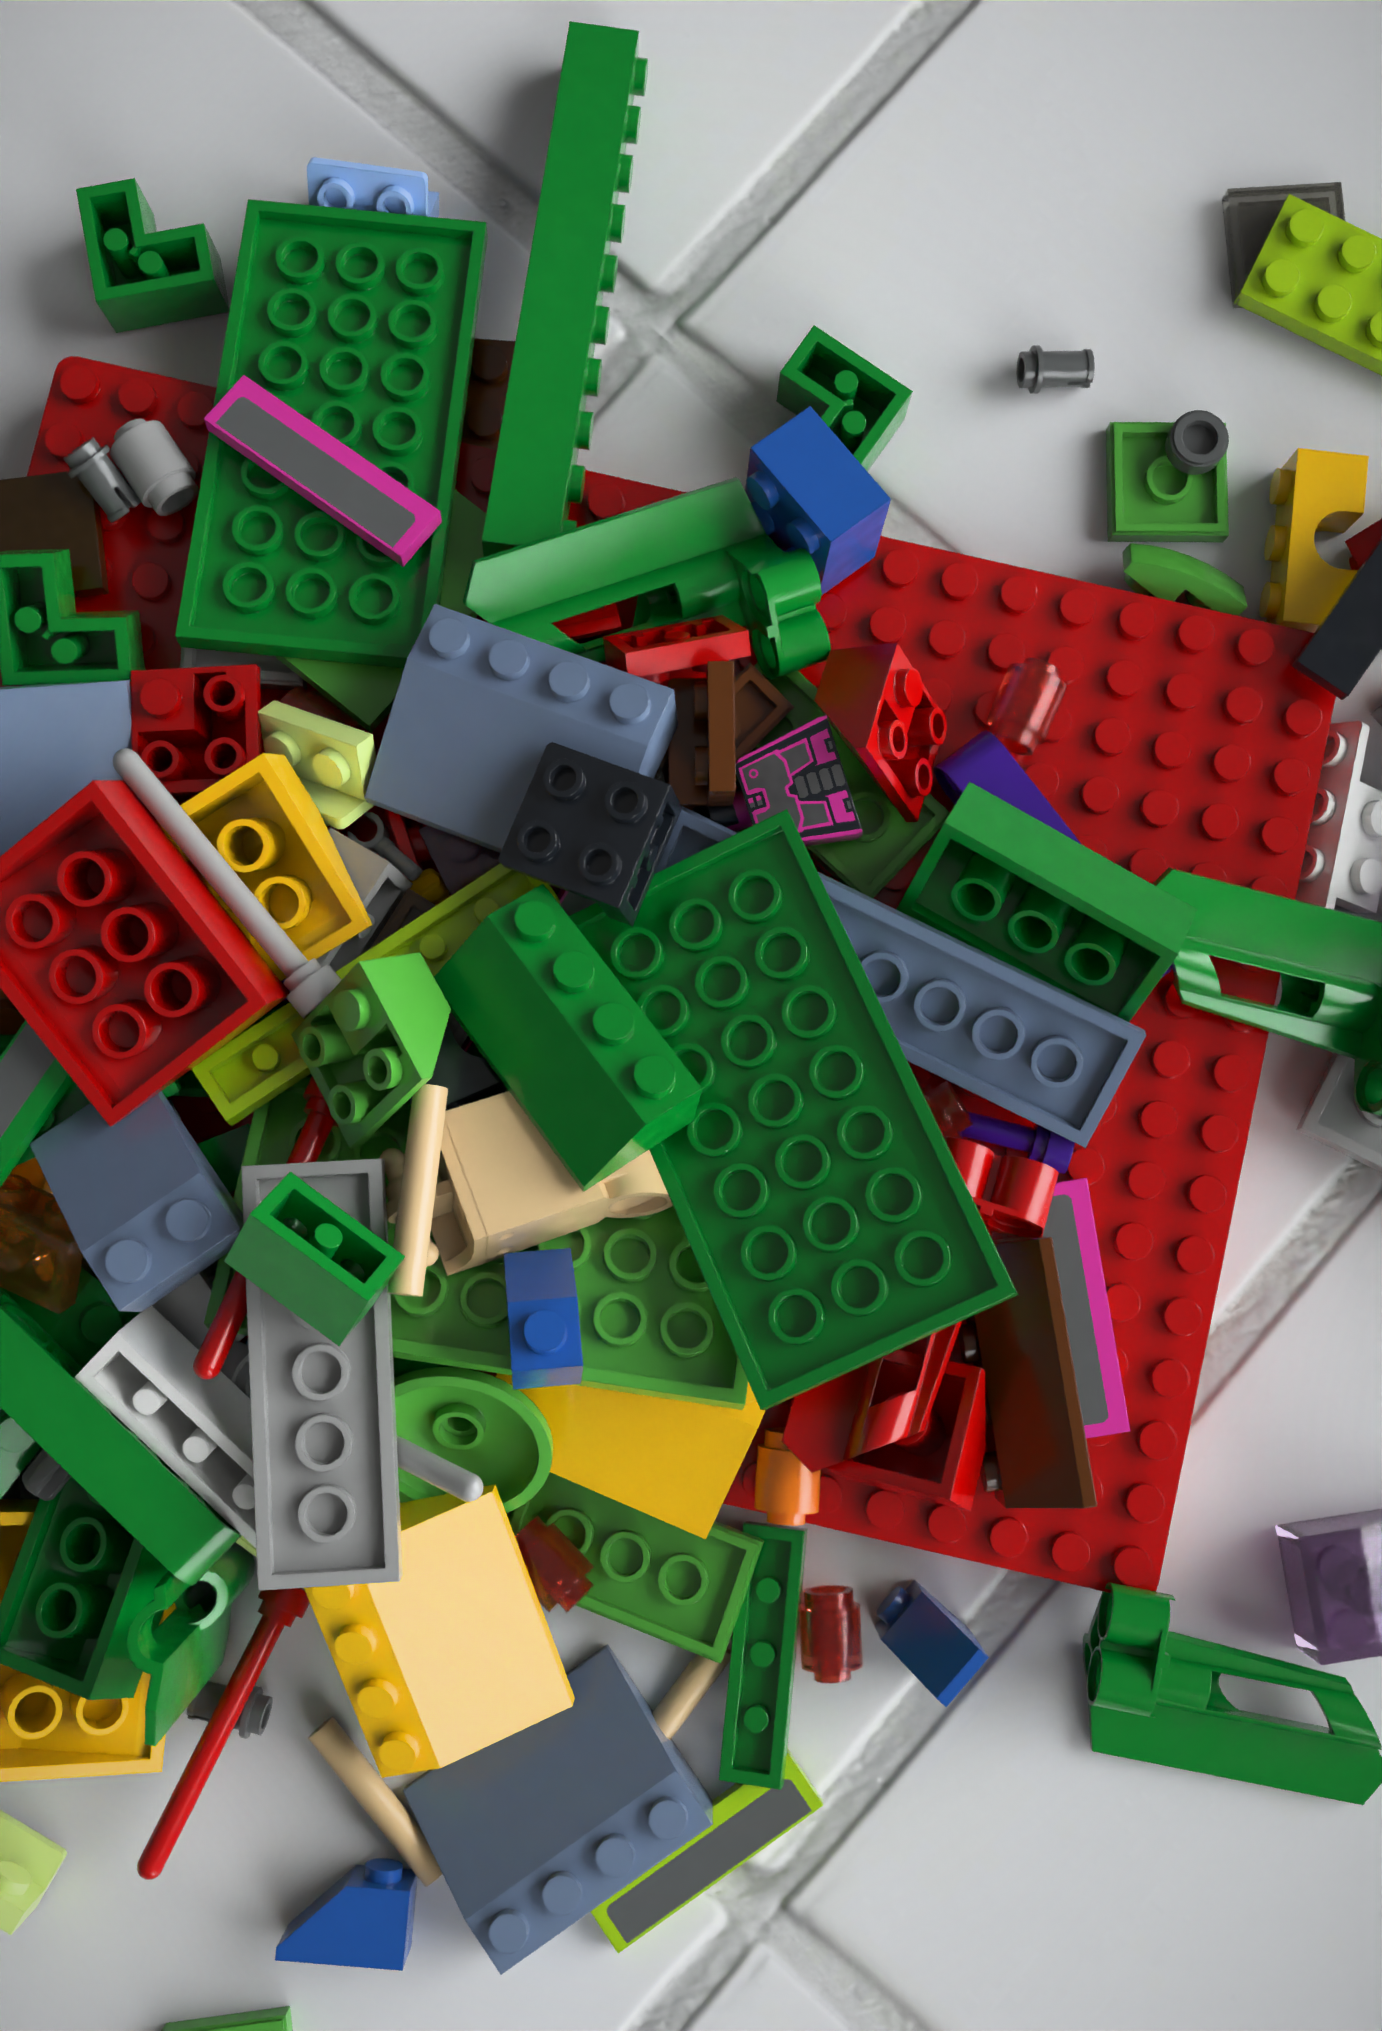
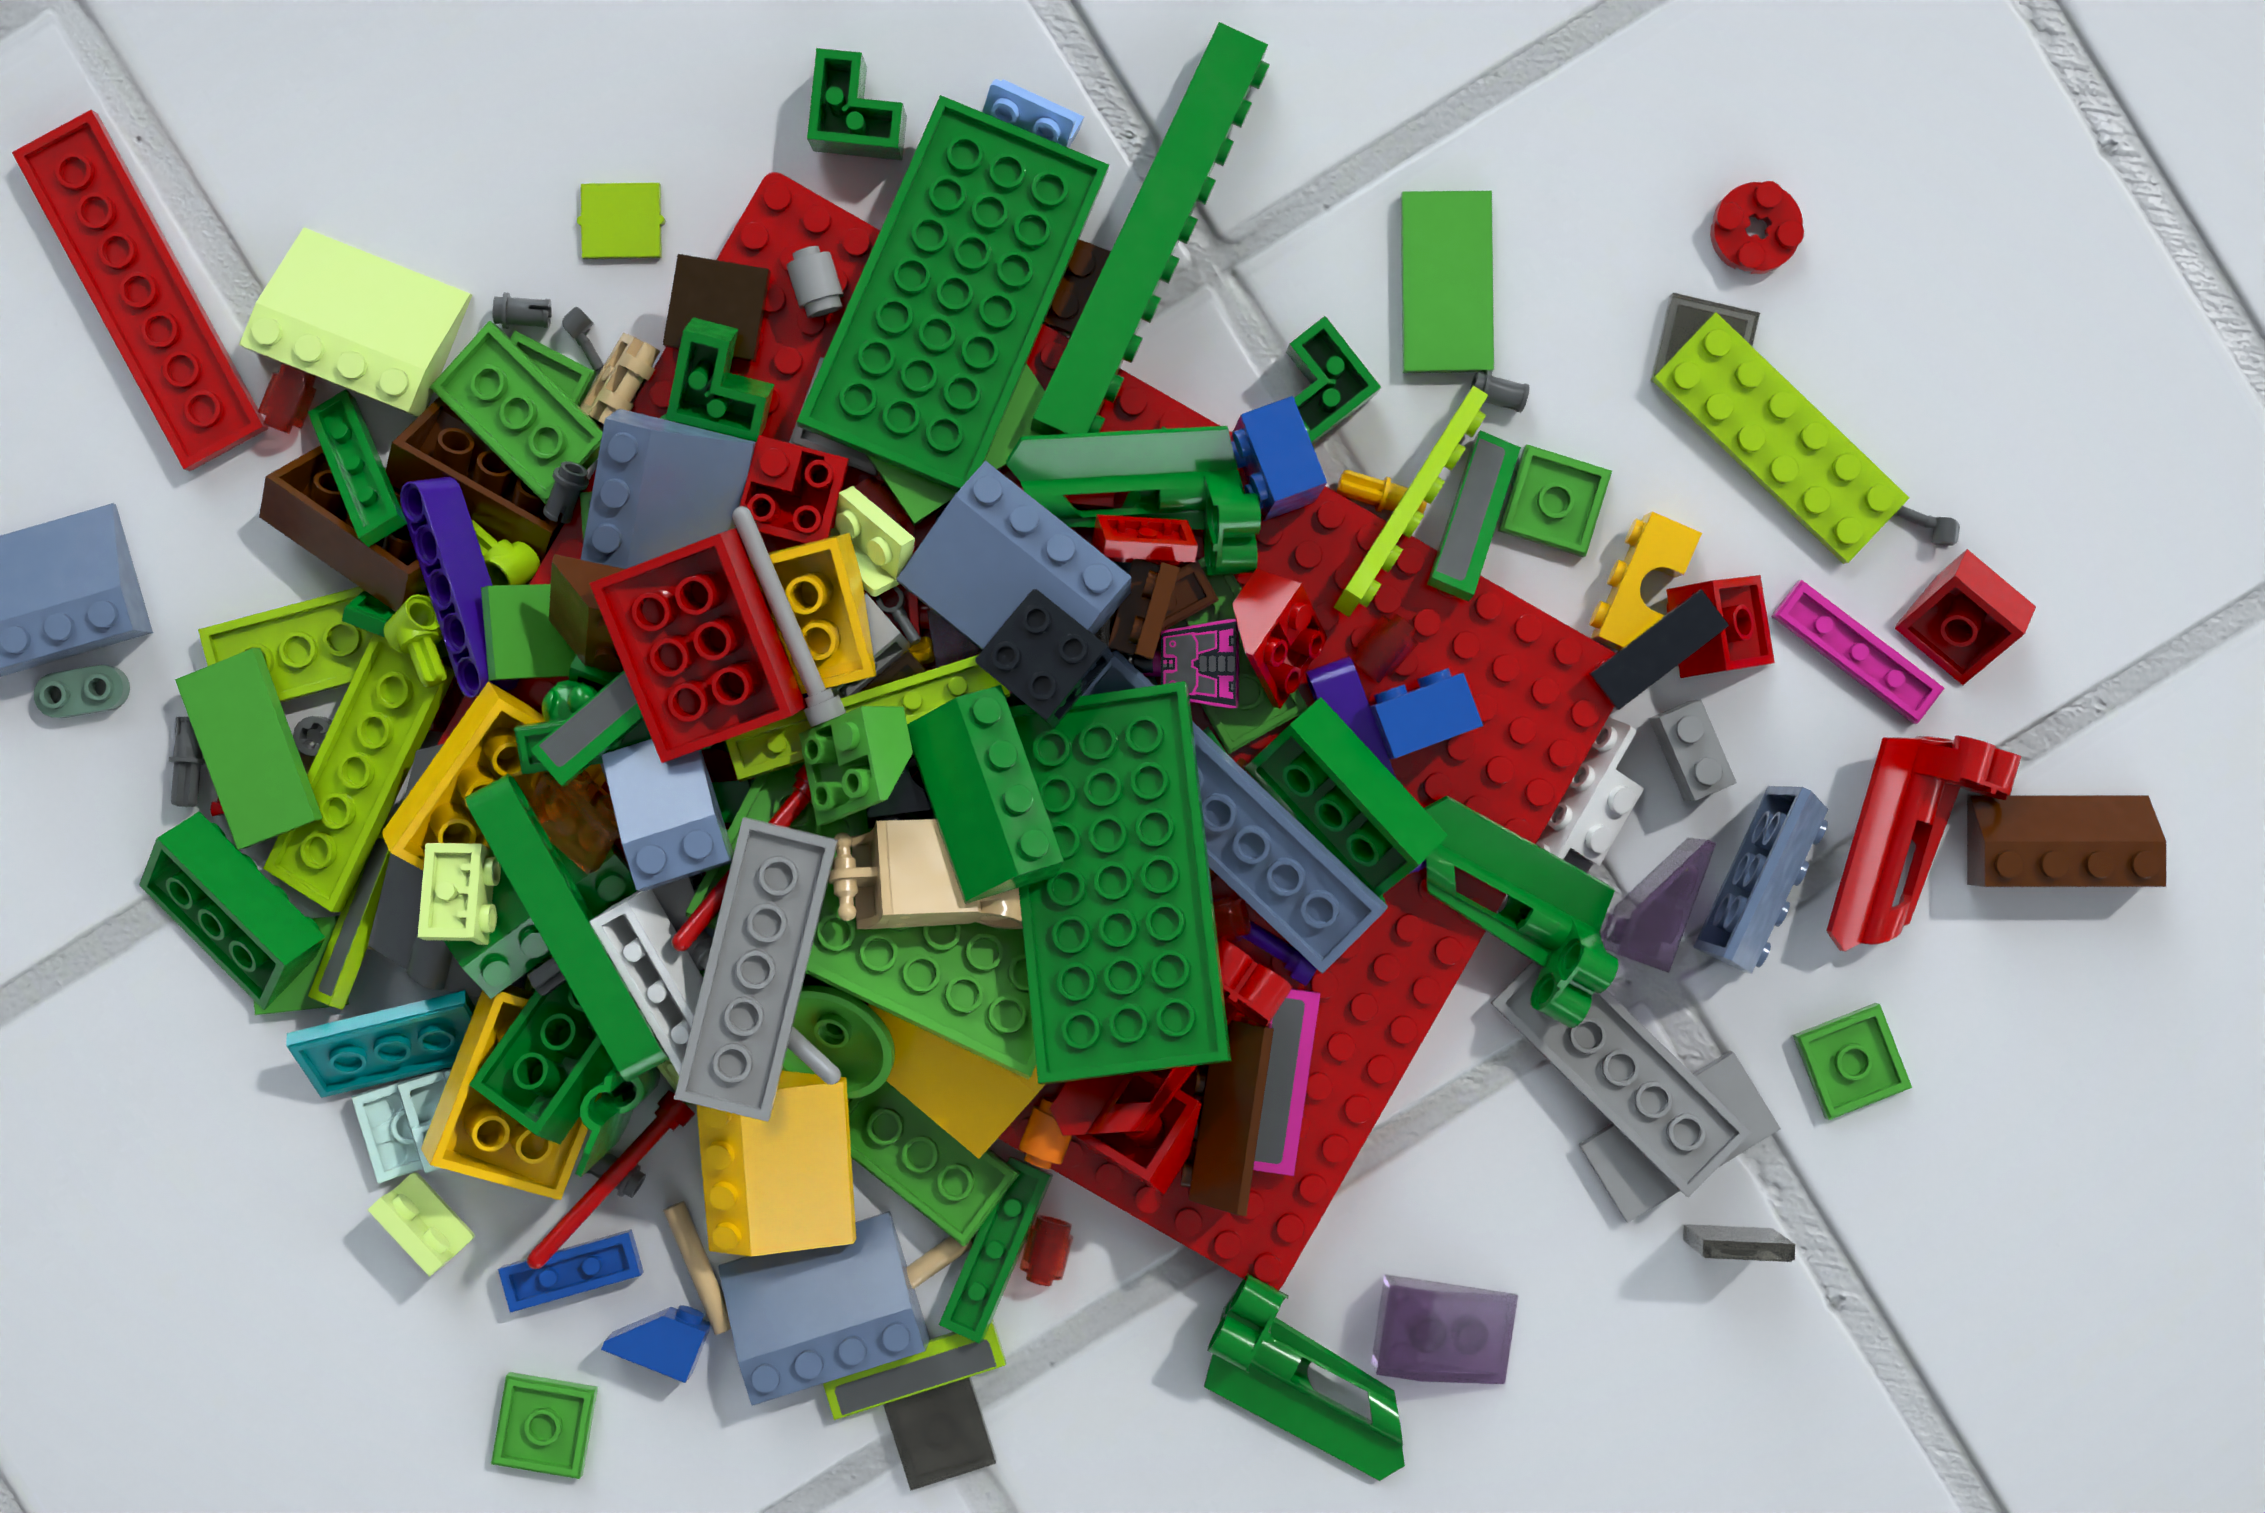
camera: 25 degrees right, 5 degrees up
(102, 479) = (775, 281): dark grey pin -> none
(209, 1860) = (572, 1271): none -> blue plate
(313, 1258) = (775, 896): green brick -> none
(323, 470) = (935, 328): tile -> none
(418, 1189) = (855, 870): tan piece -> none
(543, 1319) = (912, 978): blue slope -> none
(554, 1565) = (869, 1145): clear red brick -> none
(765, 1927) = (940, 1433): none -> clear smoke tile
(929, 1640) = (1112, 1274): blue slope -> none
(947, 259) = (1447, 281): none -> bright green tile
(956, 533) = (1372, 491): none -> yellow axle
(997, 536) = (1405, 516): none -> lime plate
(1078, 521) = (1474, 516): none -> tile
(1114, 765) = (1425, 715): none -> blue brick
(1168, 573) = (1530, 572): bright green slope -> none
(1196, 442) = (1583, 481): dark grey tile -> none
(1306, 54) = (1767, 203): none -> red plate

